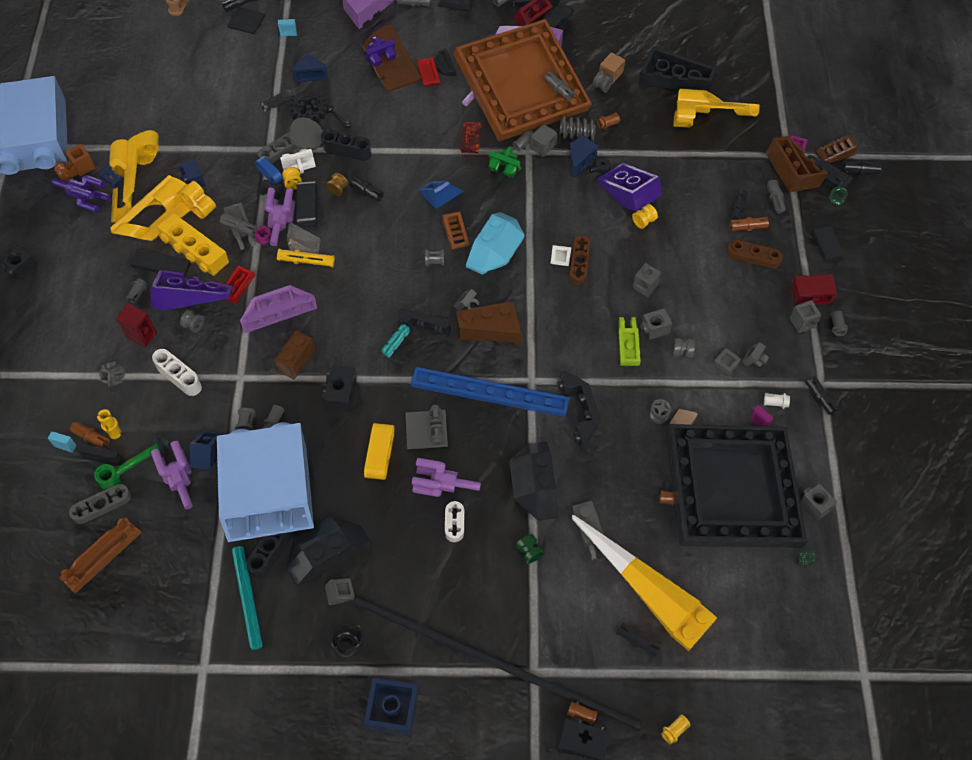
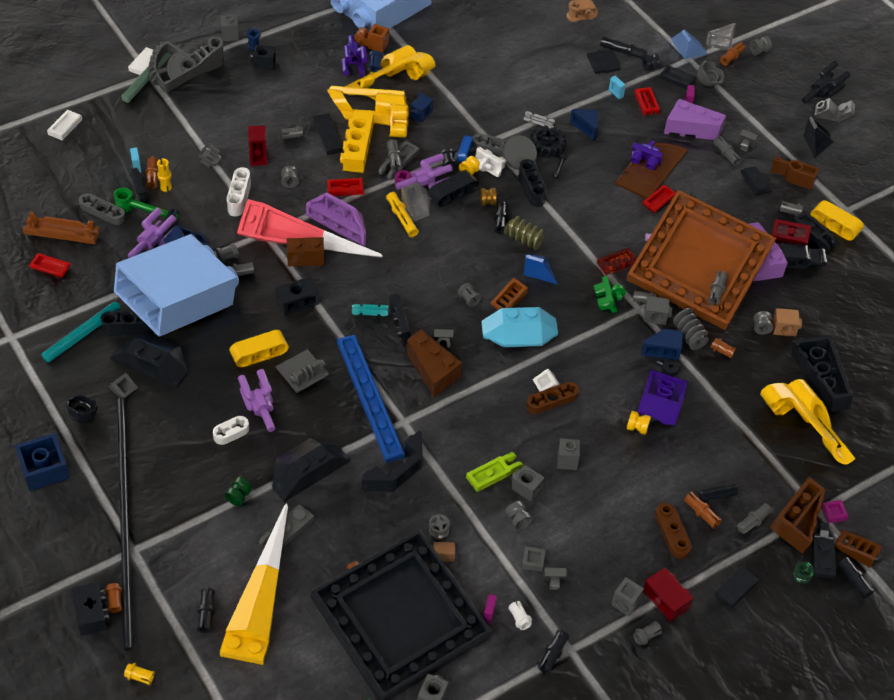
camera: 55 degrees right, 10 degrees down
(138, 587) = (49, 265): none -> red tile
(175, 291) = (310, 154): dark purple wedge -> none
(242, 365) = (274, 226): none -> coral plate
(316, 18) = (638, 92): none -> red tile
(398, 179) = (524, 233): none -> olive piece

